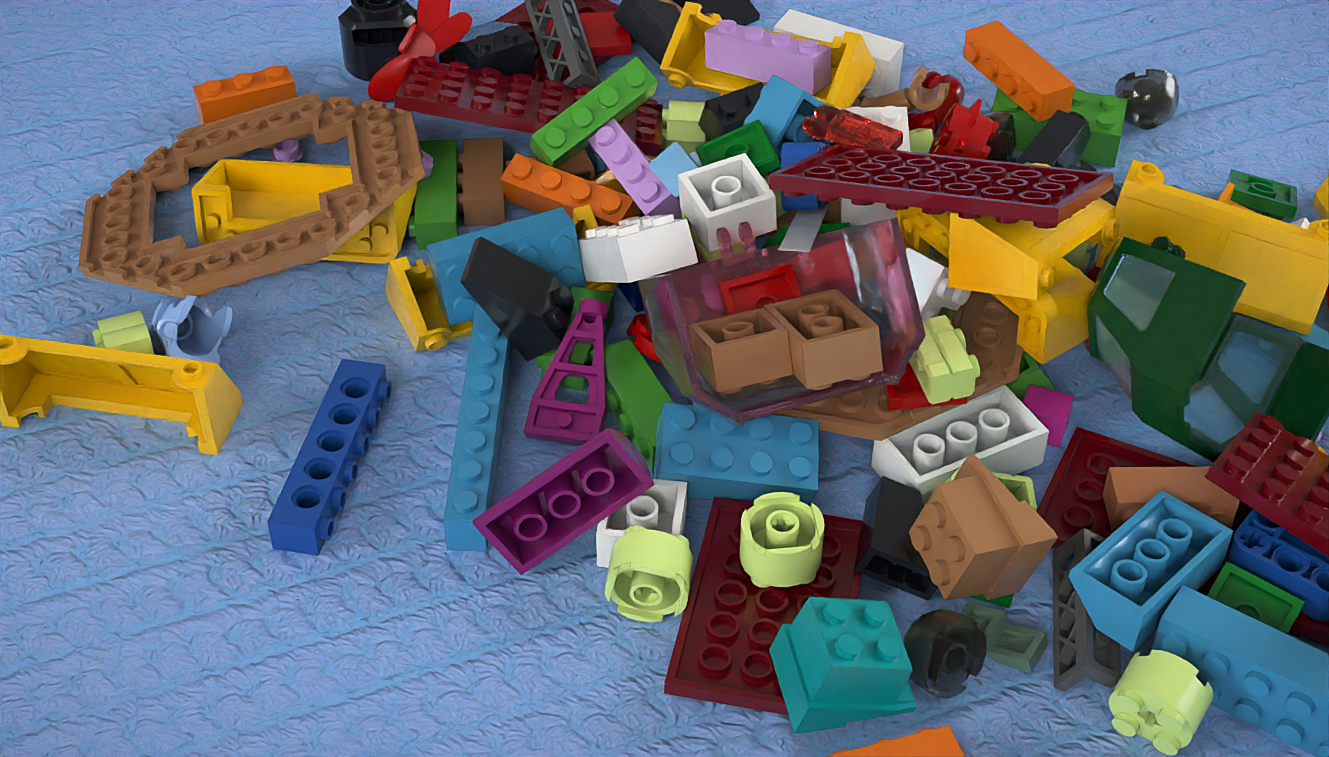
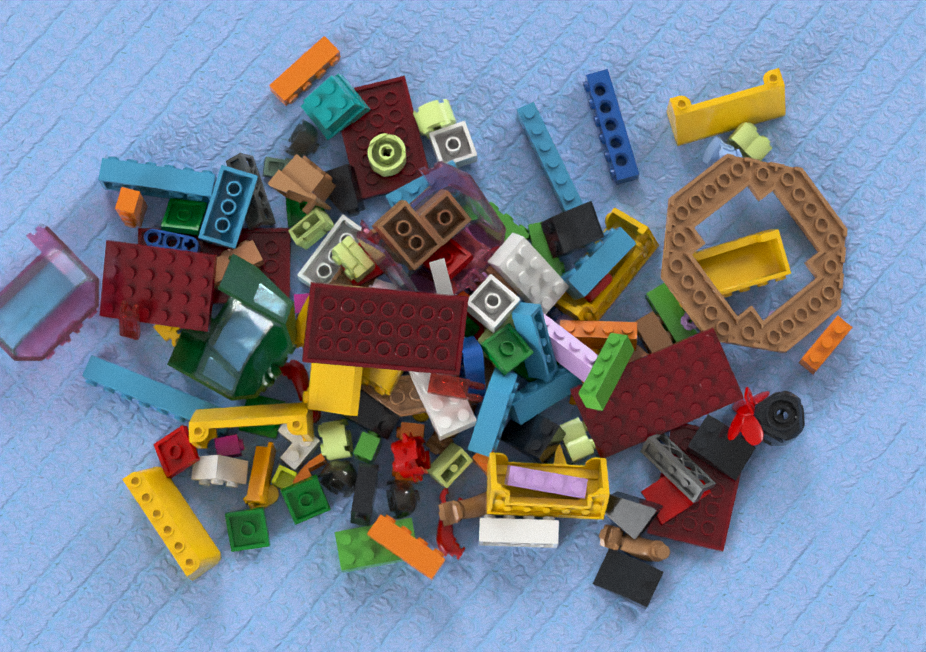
camera: 155 degrees right, 35 degrees up
(566, 420) = (522, 195): magenta plate -> none
(566, 500) = (484, 127): magenta slope -> none
(1150, 98) = (332, 587): clear smoke cylinder -> none
(1160, 700) = (206, 152): yellowish green brick -> none

